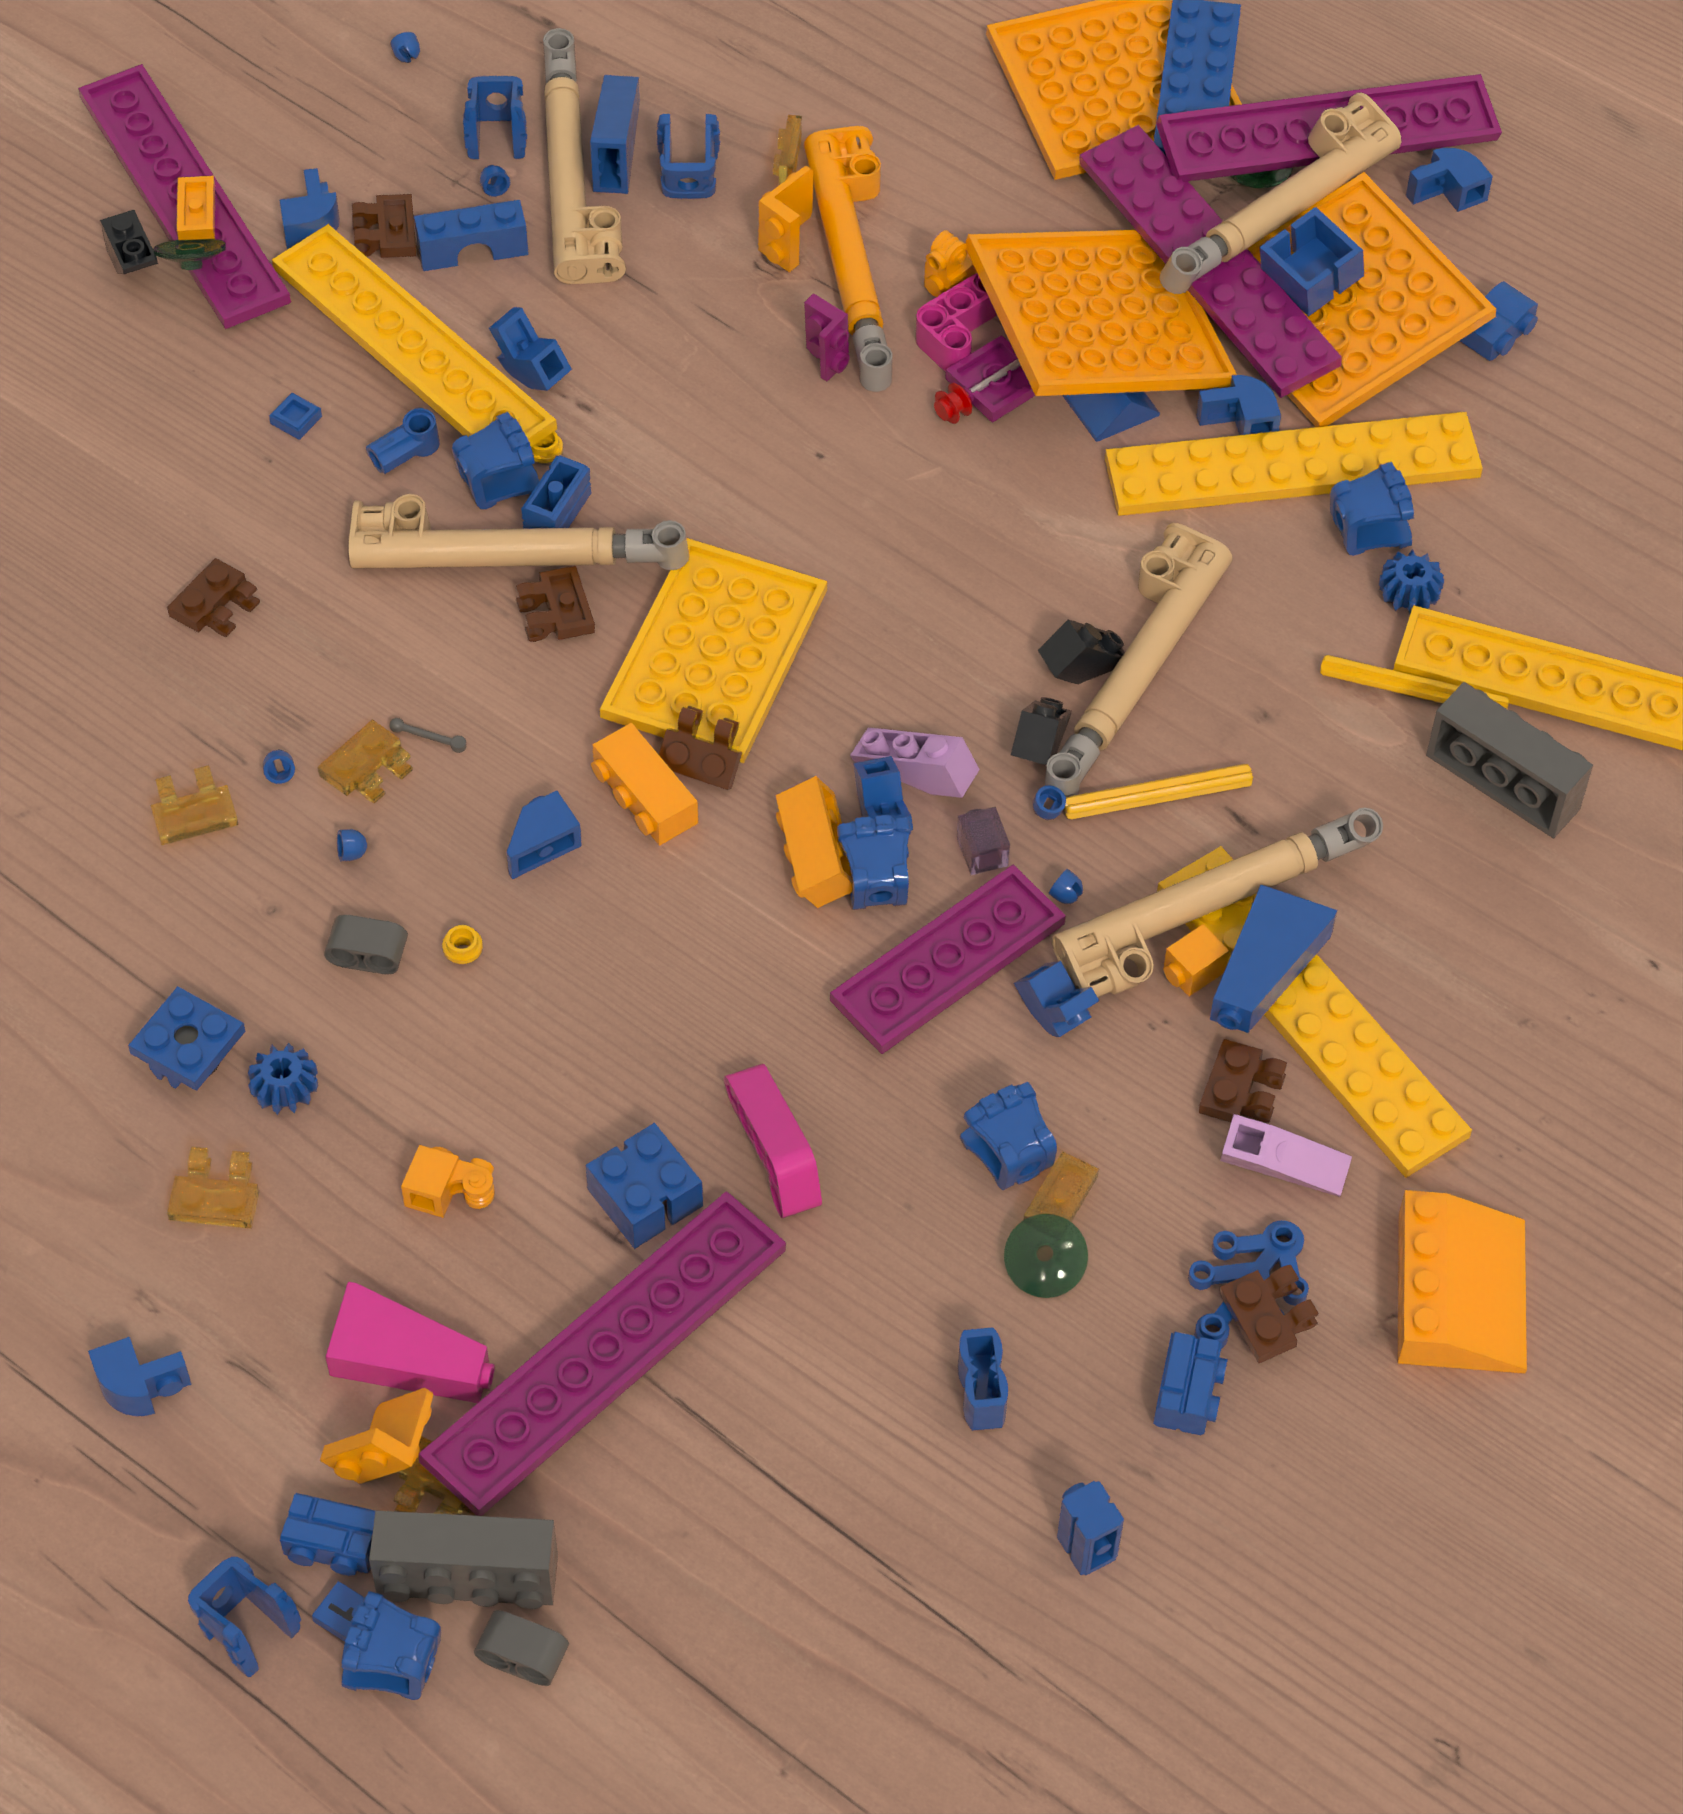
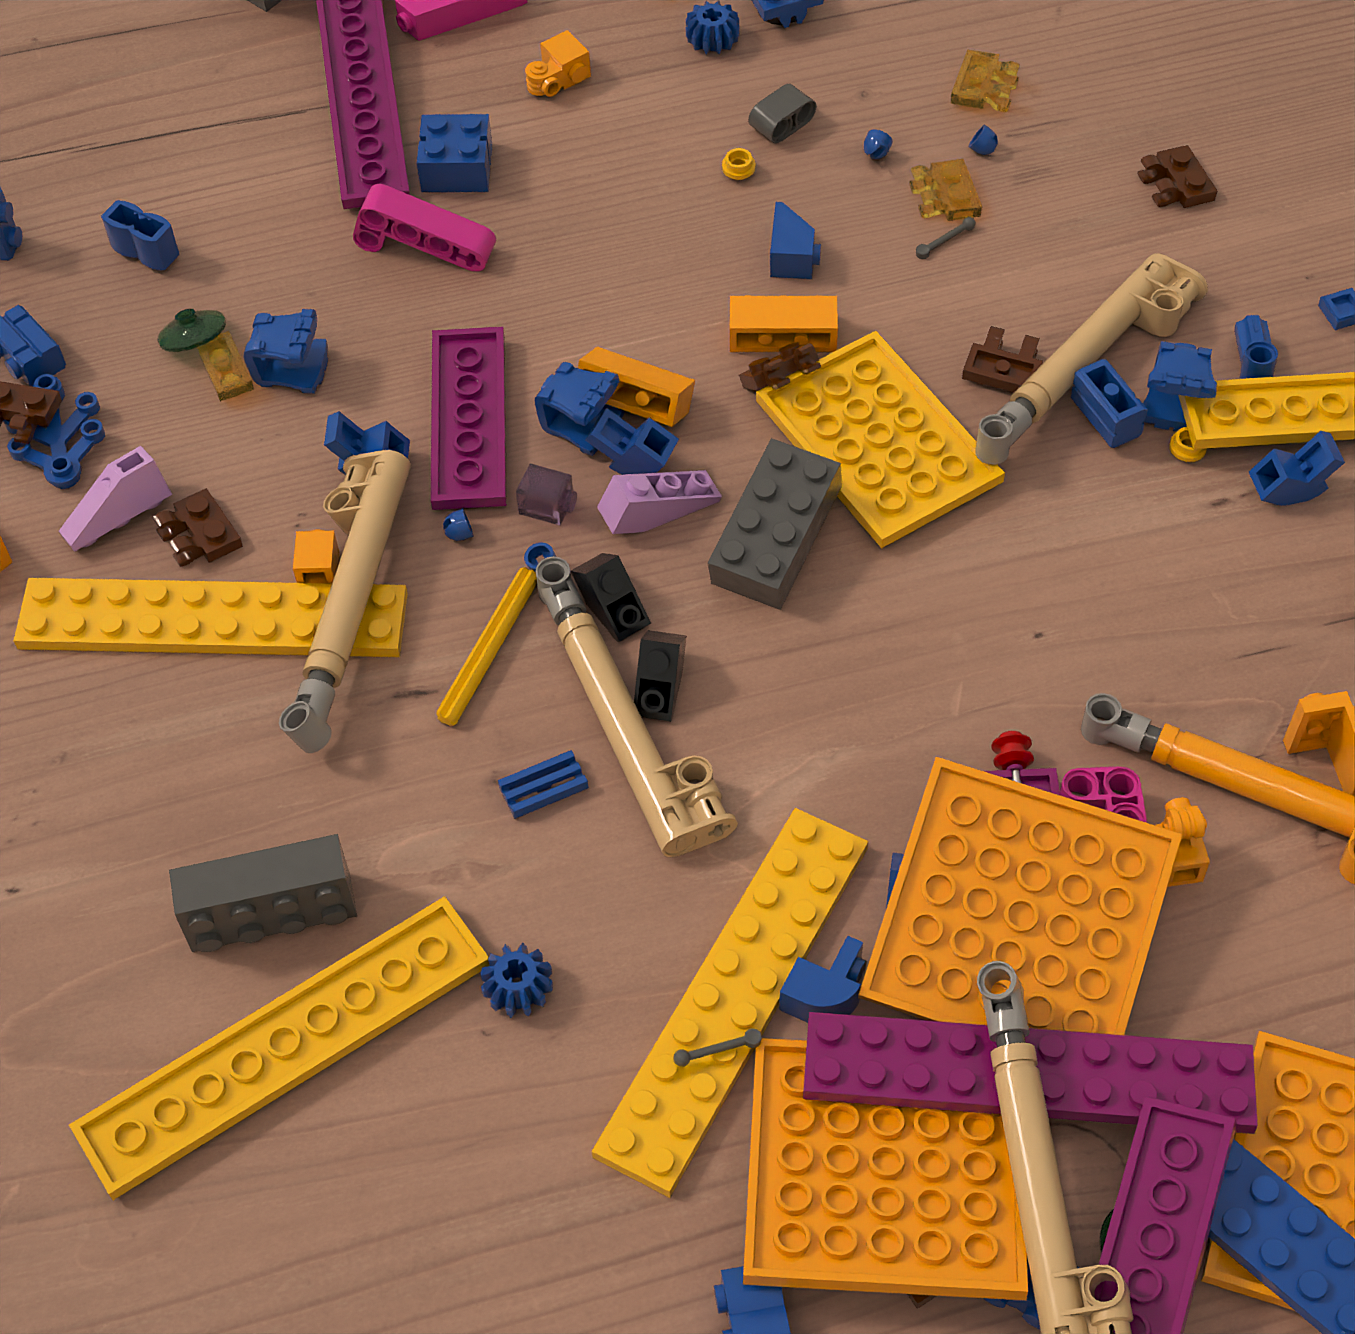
camera: 130 degrees right, 0 degrees up
(827, 335) = (1155, 685): magenta bracket -> none
(880, 648) = (775, 523): none -> dark grey brick
(1245, 672) = (540, 778): none -> blue tile
(1269, 954) = (263, 589): blue slope -> none
(1320, 263) = (928, 1129): blue piece -> none
(1324, 420) = (751, 1039): none -> dark grey hinge
(1373, 510) = (609, 995): blue piece -> none
(1393, 680) = (445, 885): yellow axle -> none

